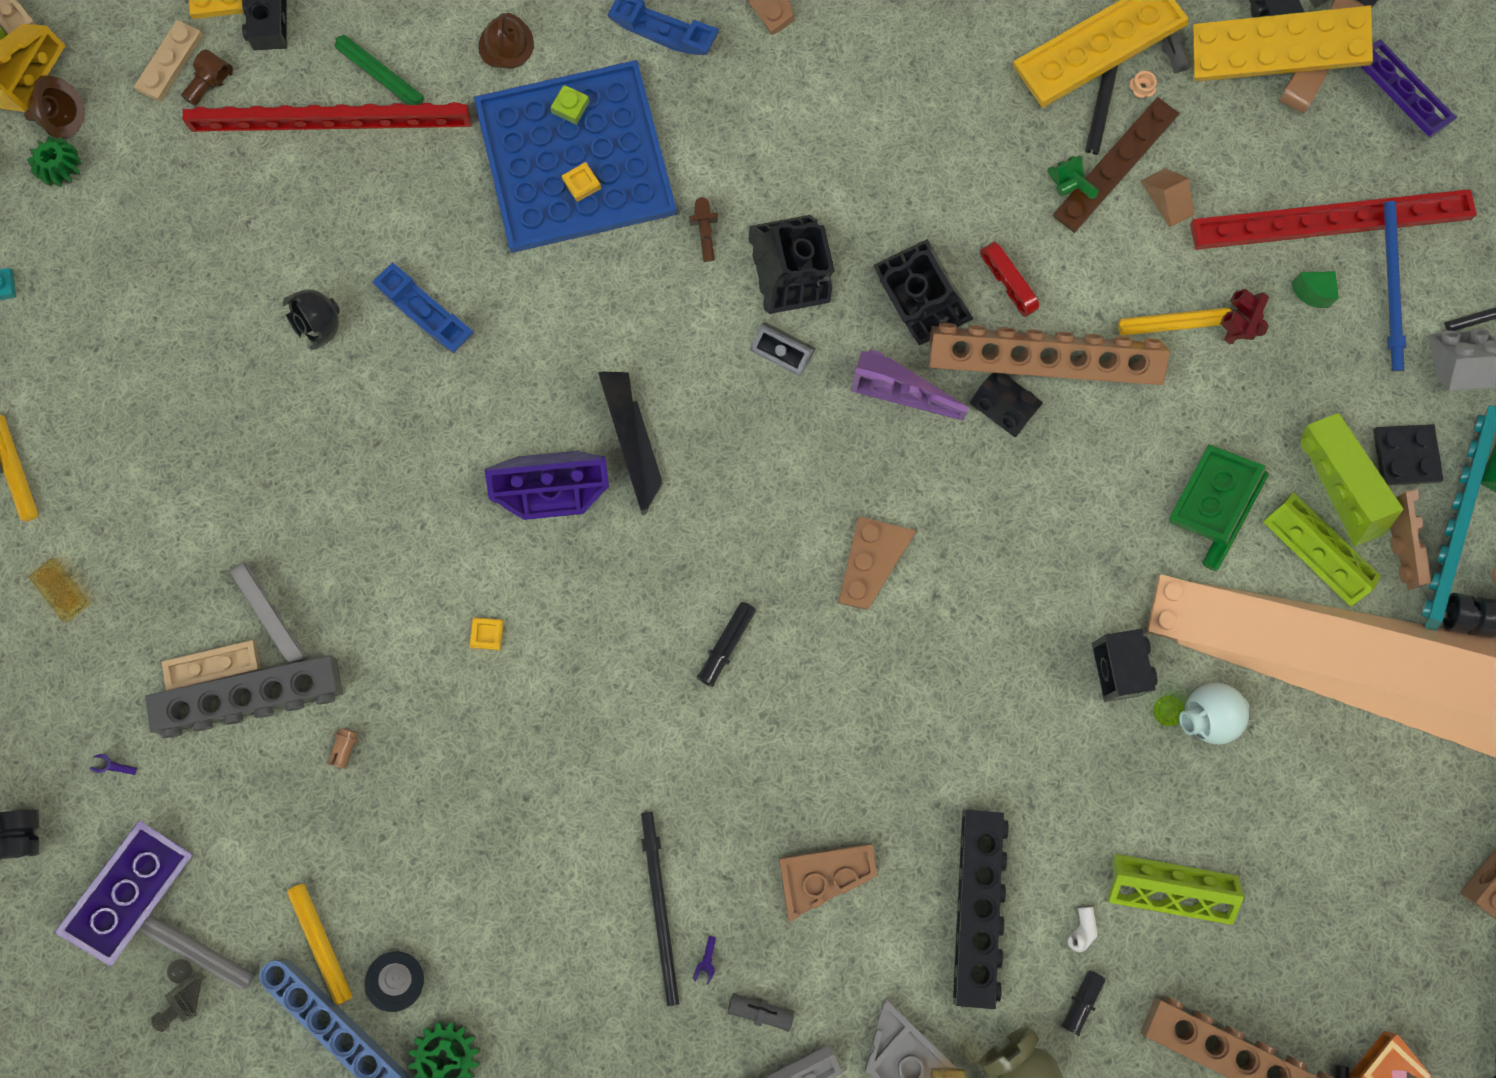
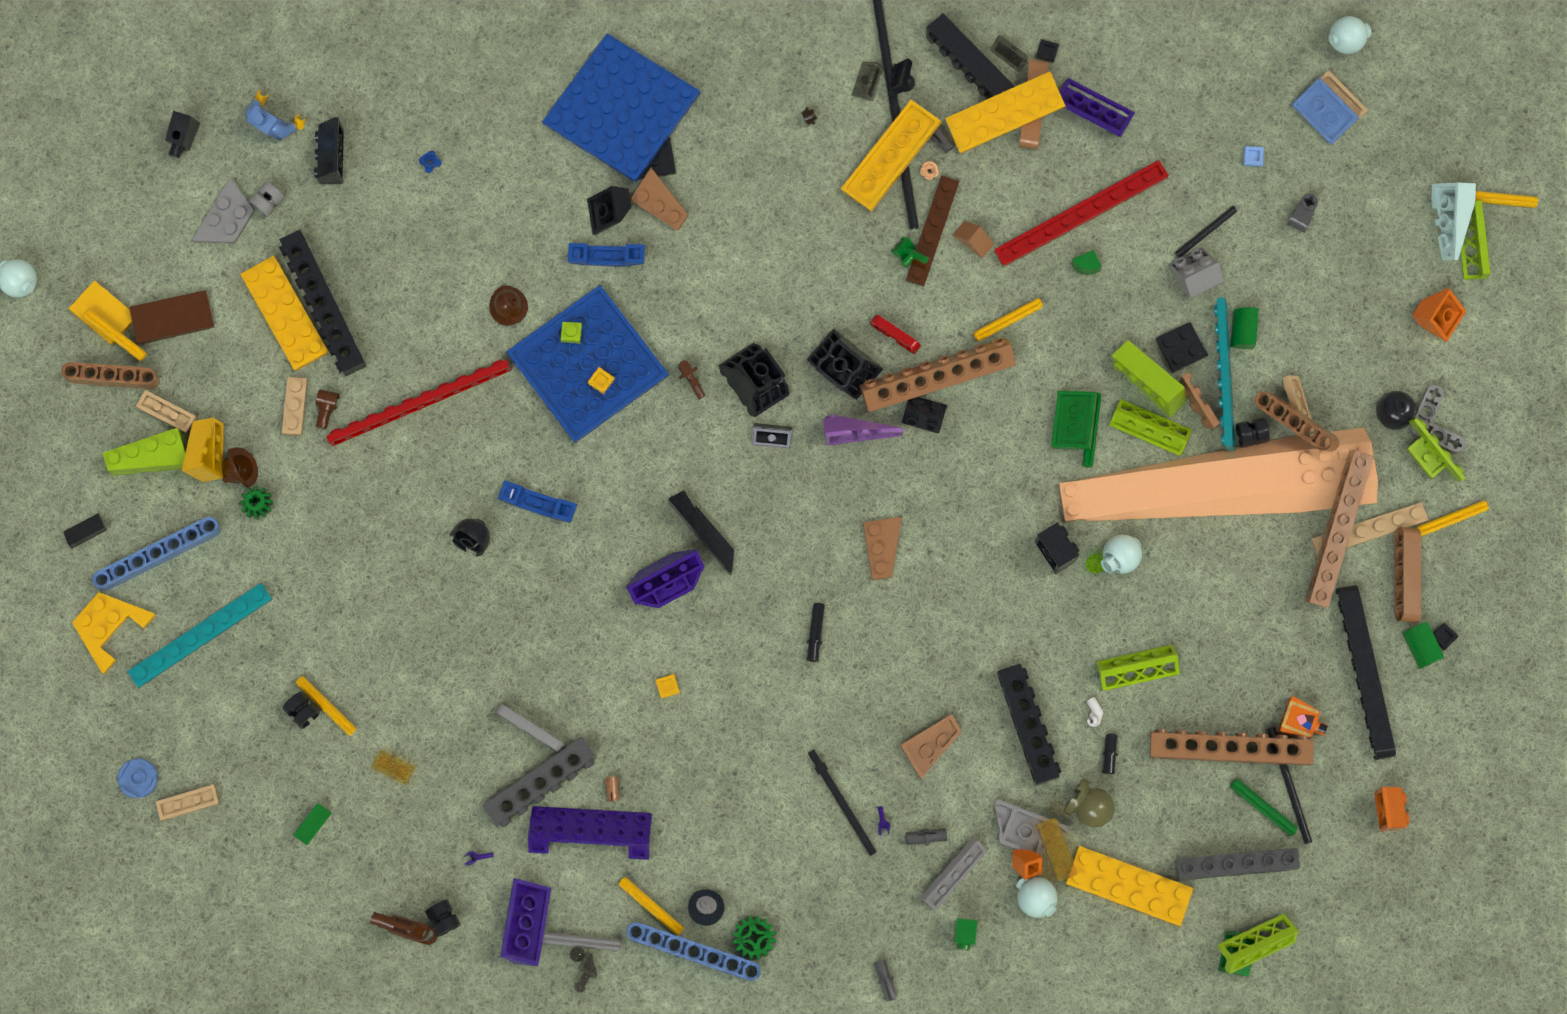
camera: 20 degrees left, 0 degrees up
(211, 665) = (510, 773): tan plate -> none
(283, 792) = (589, 827): none -> dark purple bracket
(378, 71) = (435, 358): green axle -> none
(1248, 318) = (1052, 300): dark red hips -> none
(1396, 341) = (1149, 278): blue bar -> none

